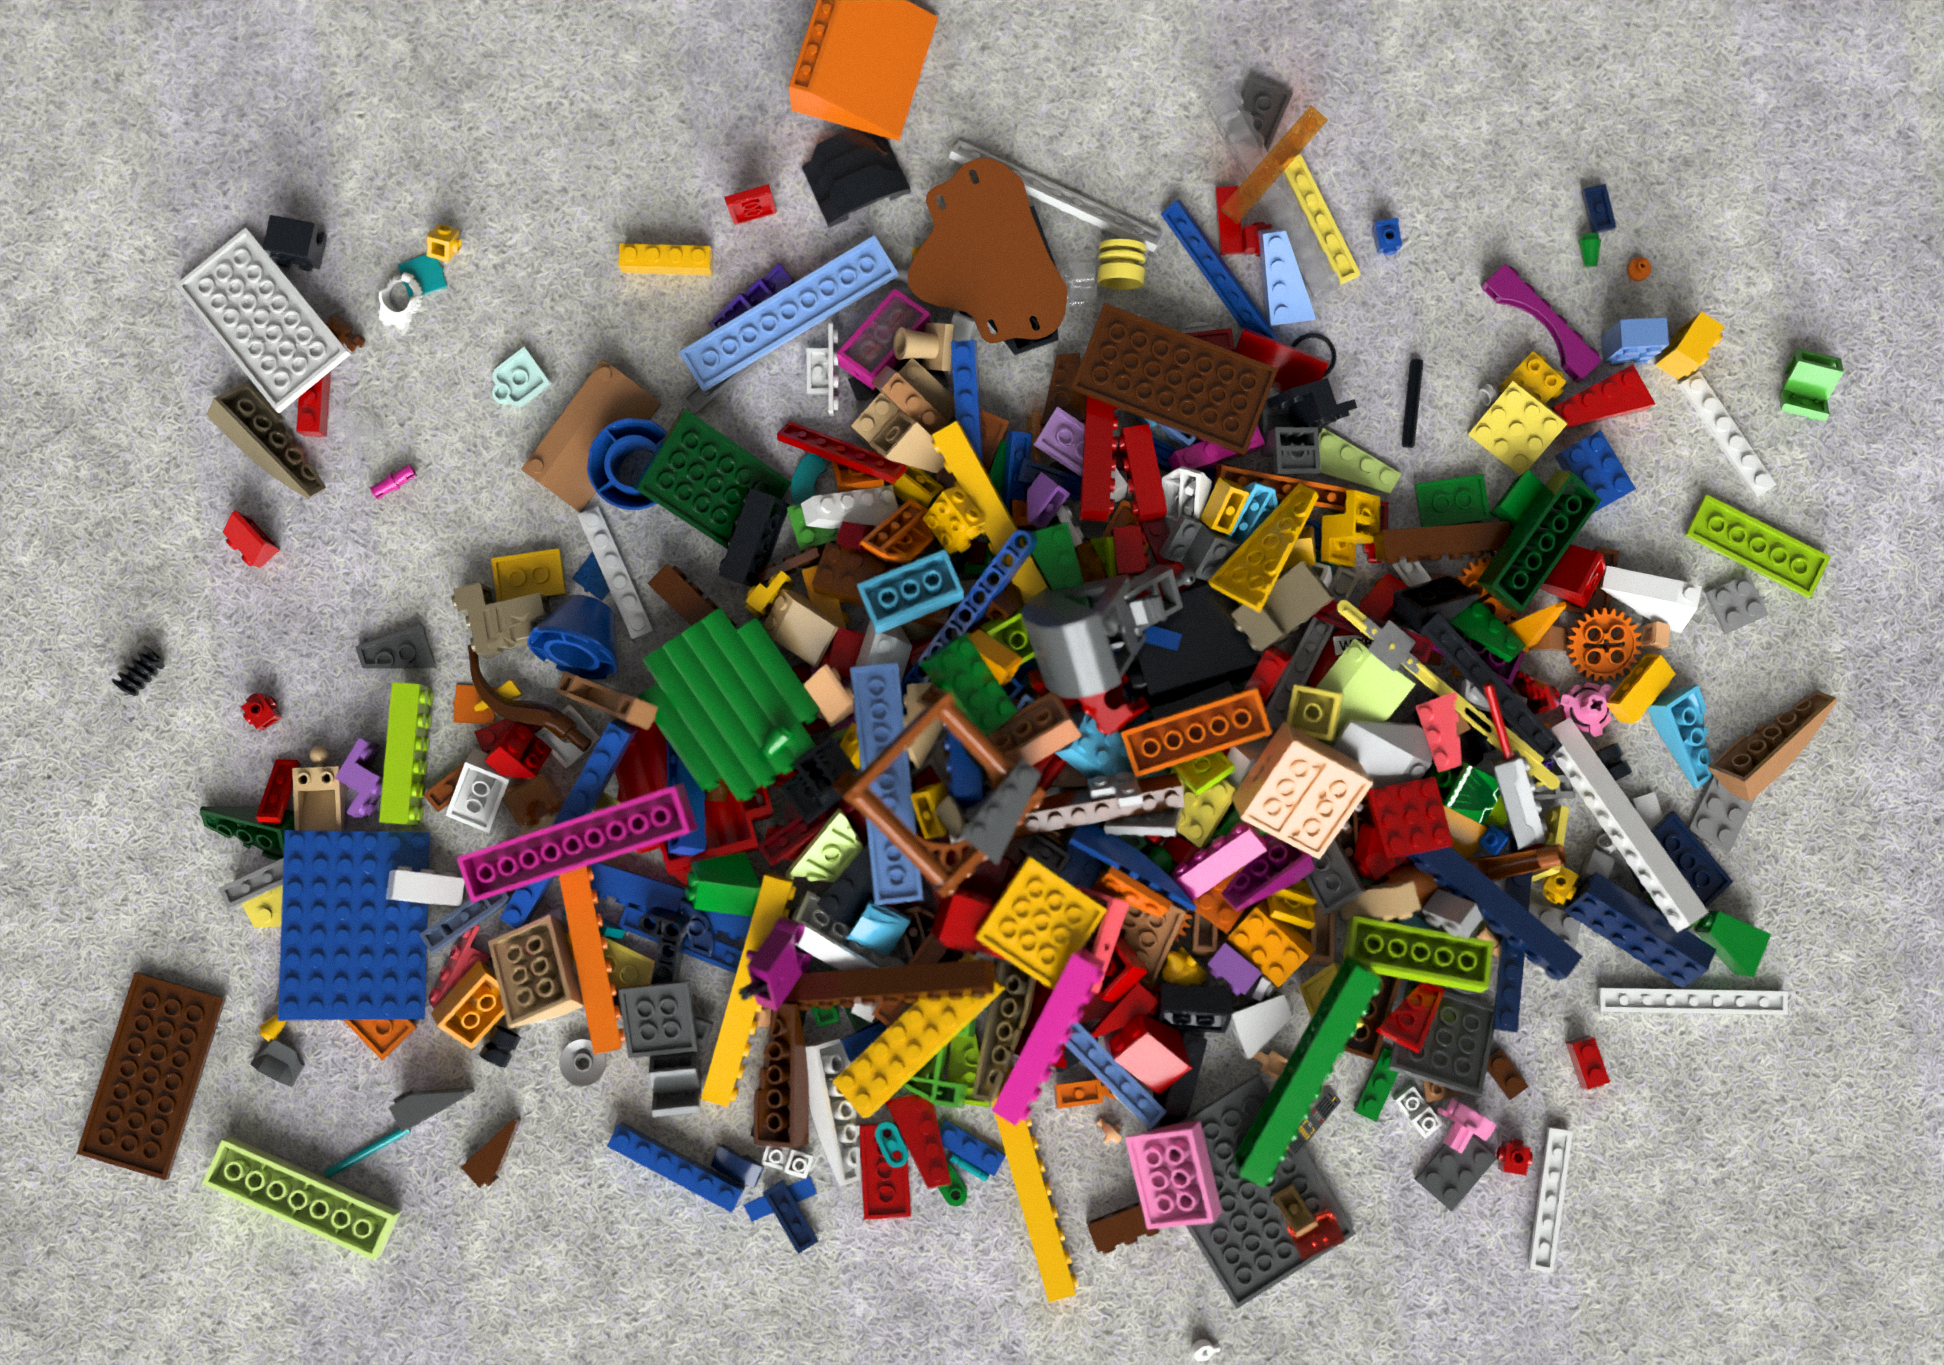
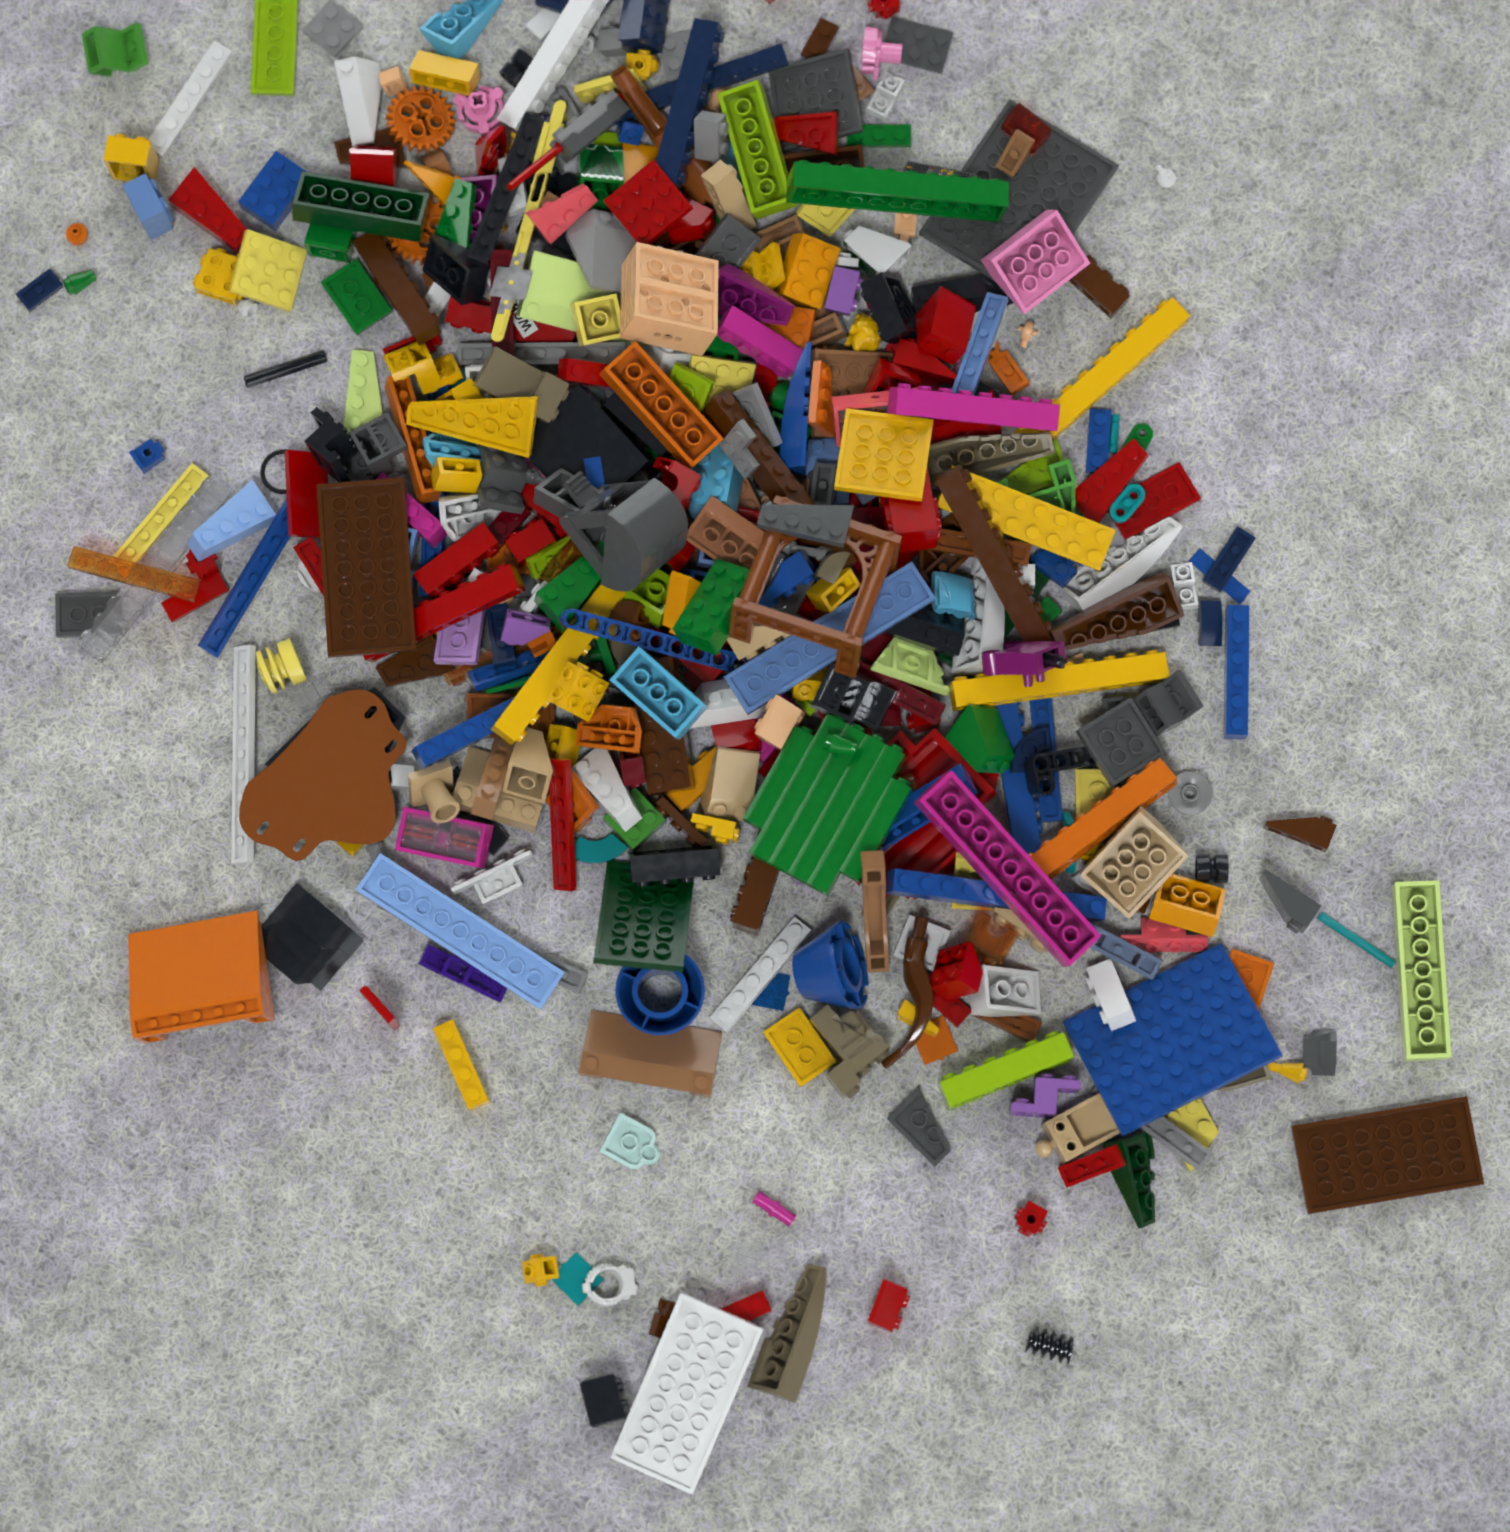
camera: 115 degrees left, 5 degrees down
(1574, 354) = (181, 251): magenta arch -> none

